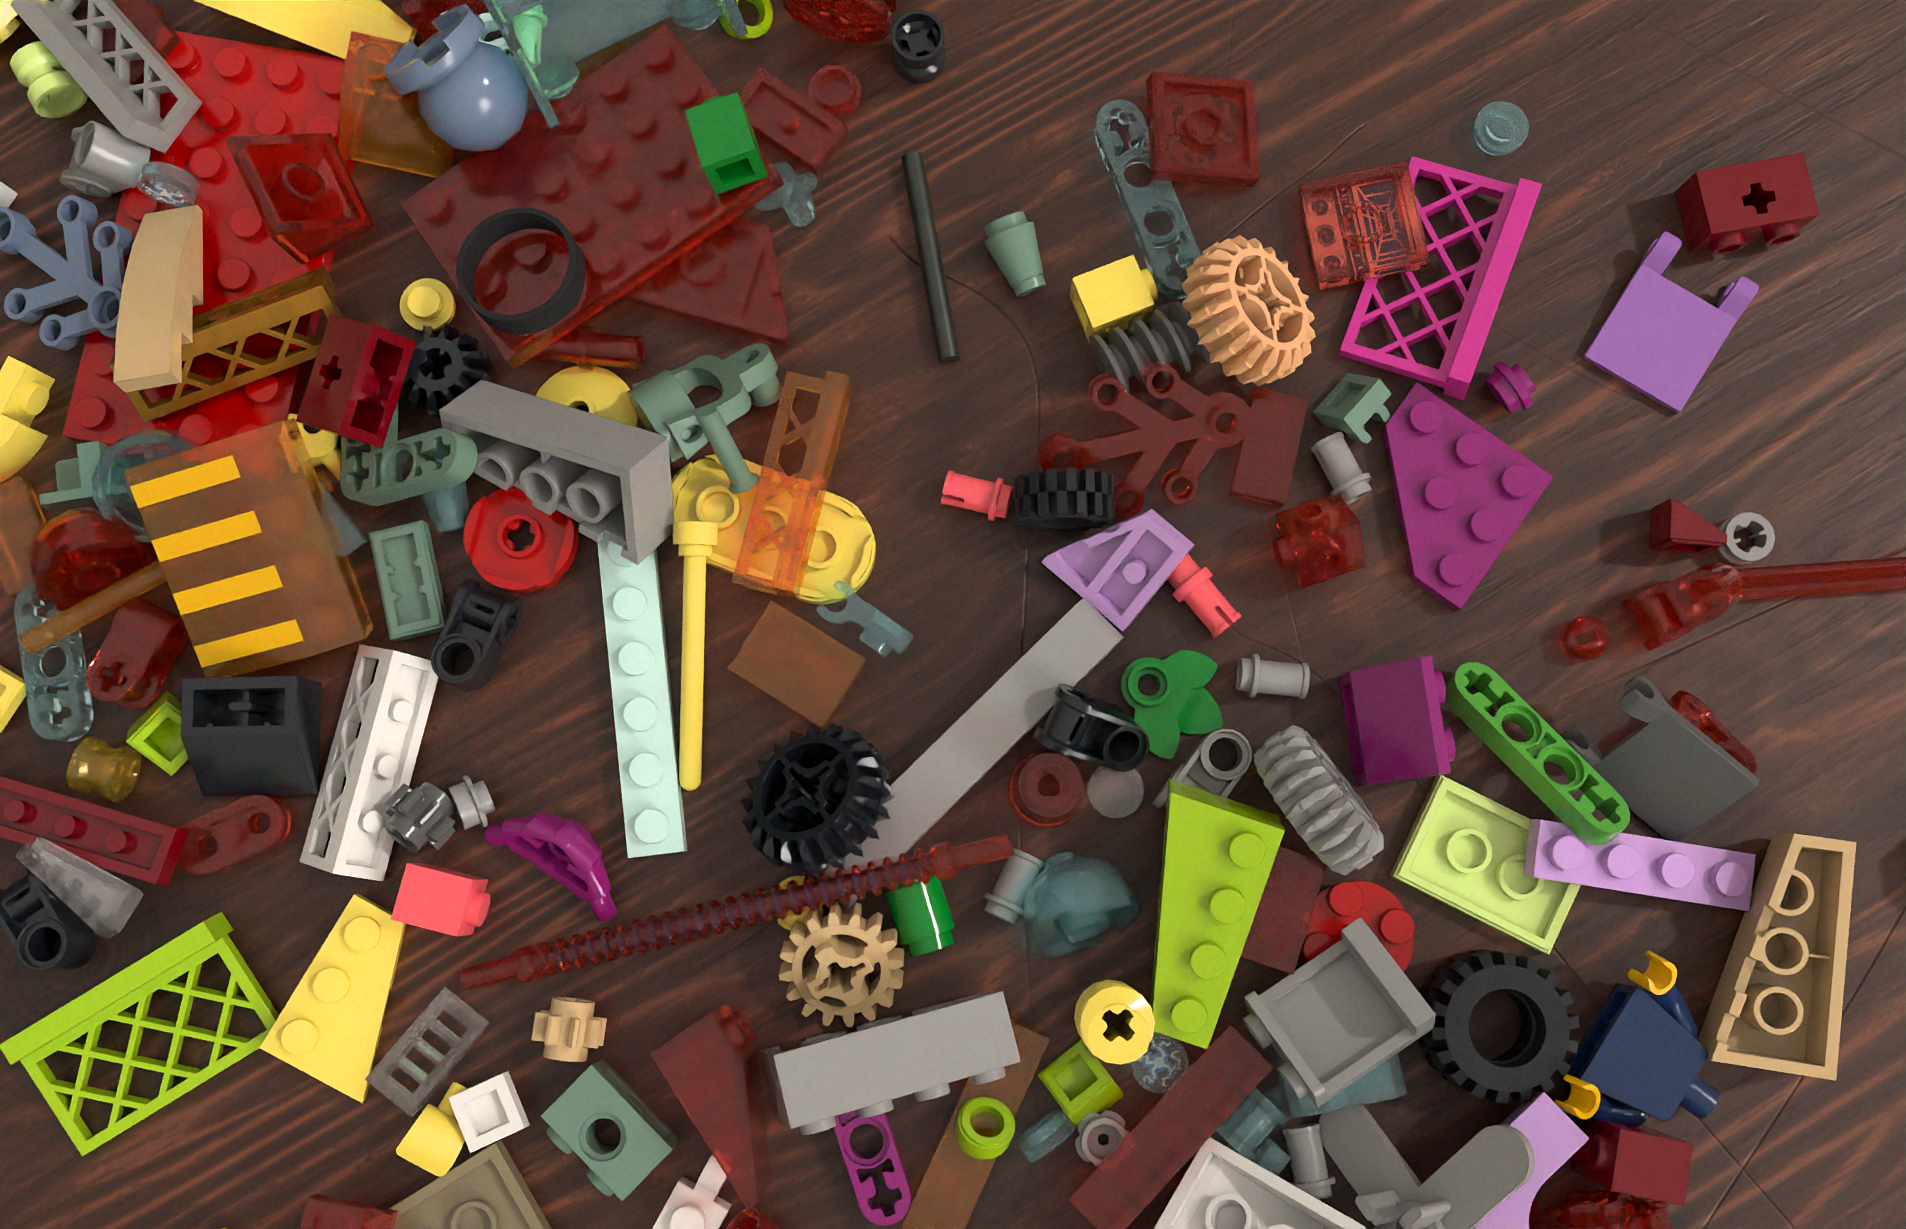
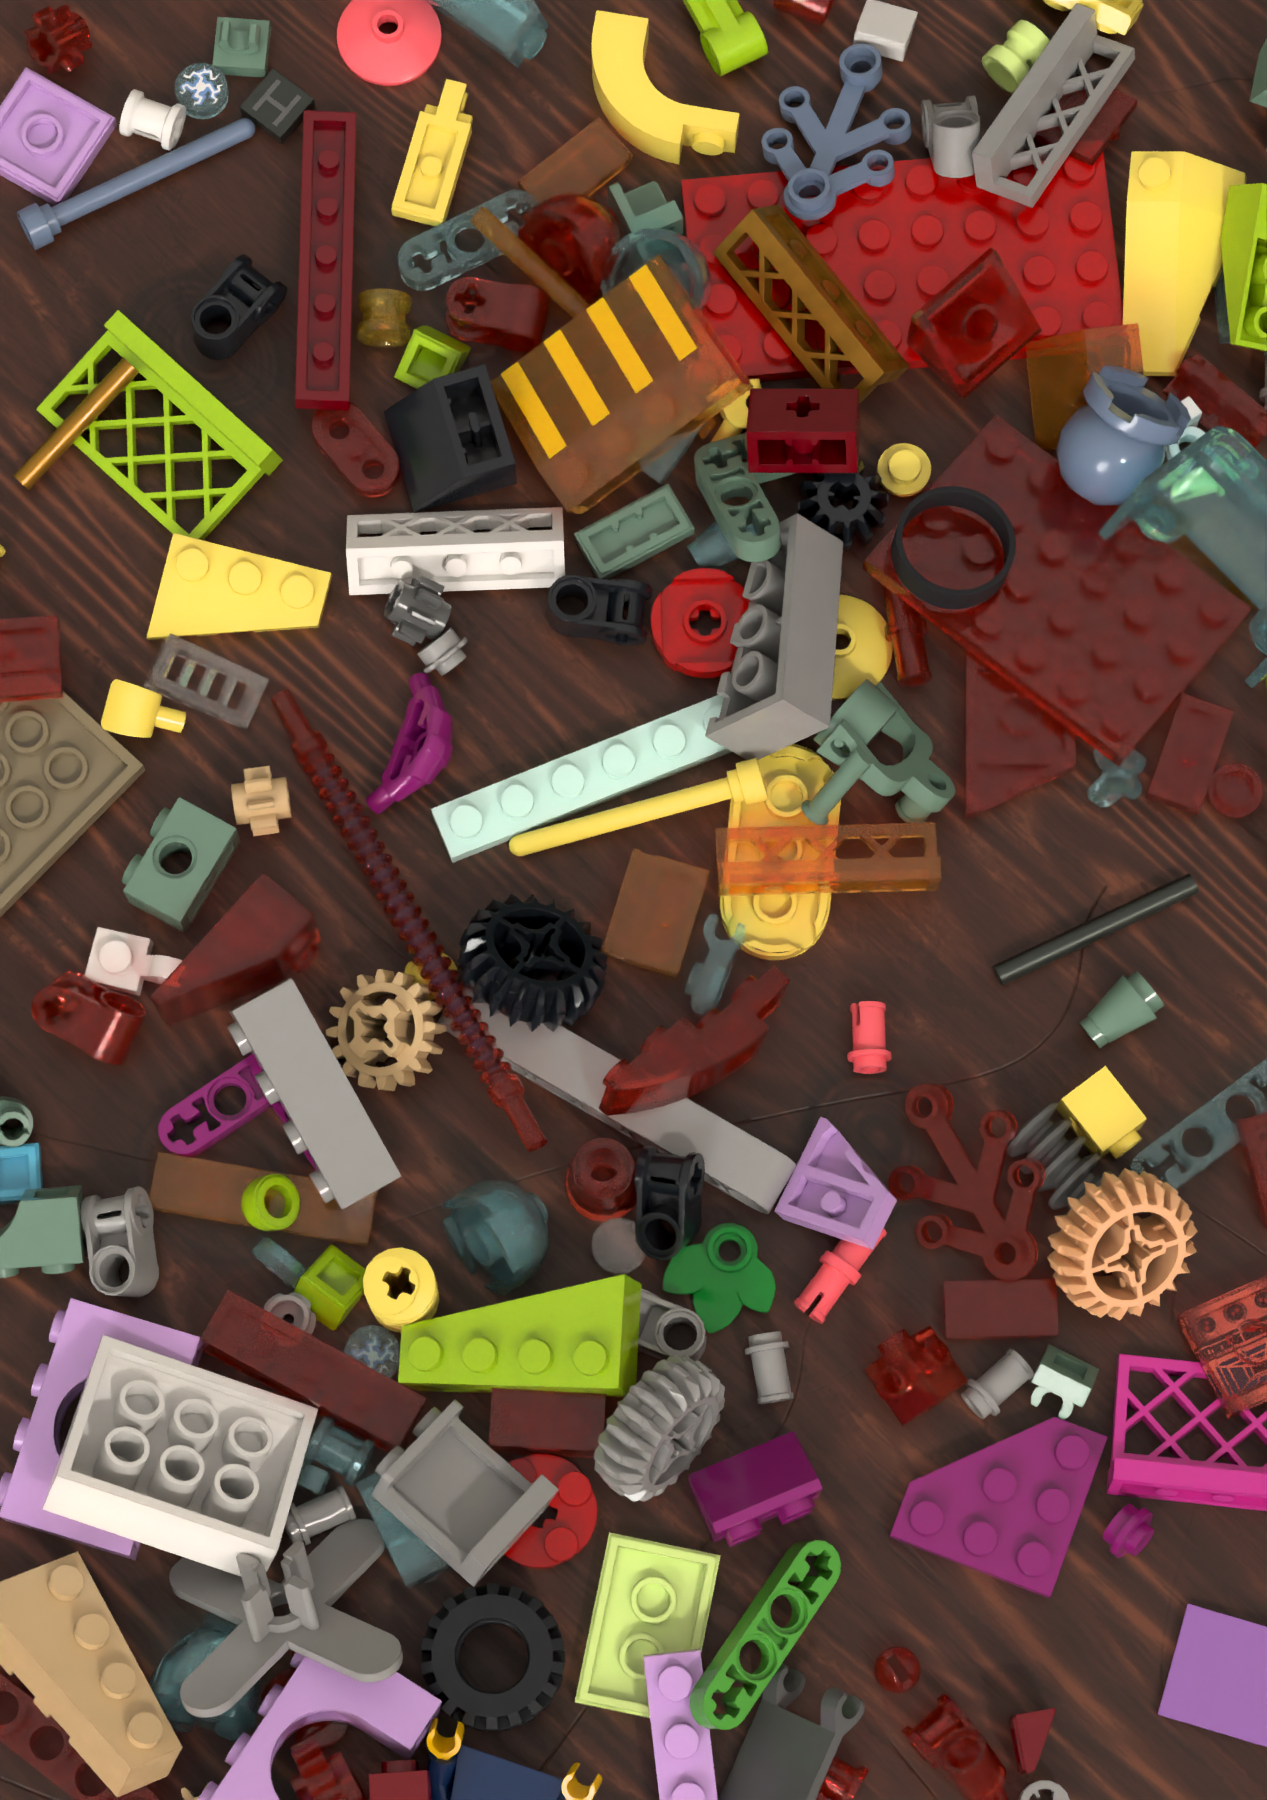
camera: 70 degrees right, 5 degrees down
(86, 889) = (273, 339): clear slope -> none
(110, 1119) = (76, 423): none -> pearl gold bar
(159, 298) = (830, 232): tan slope -> none
(168, 184) = (943, 202): clear light blue tile -> none
(441, 899) = (347, 652): coral brick -> none
(489, 1111) = (169, 751): white tile -> none
(726, 142) = (1131, 698): green brick -> none
(921, 916) = (450, 1092): green brick -> none
(955, 664) = (694, 1058): none -> clear red slope
(1010, 889) = (493, 1166): light grey pin -> none
(1063, 500) = (882, 1116): black tyre -> none

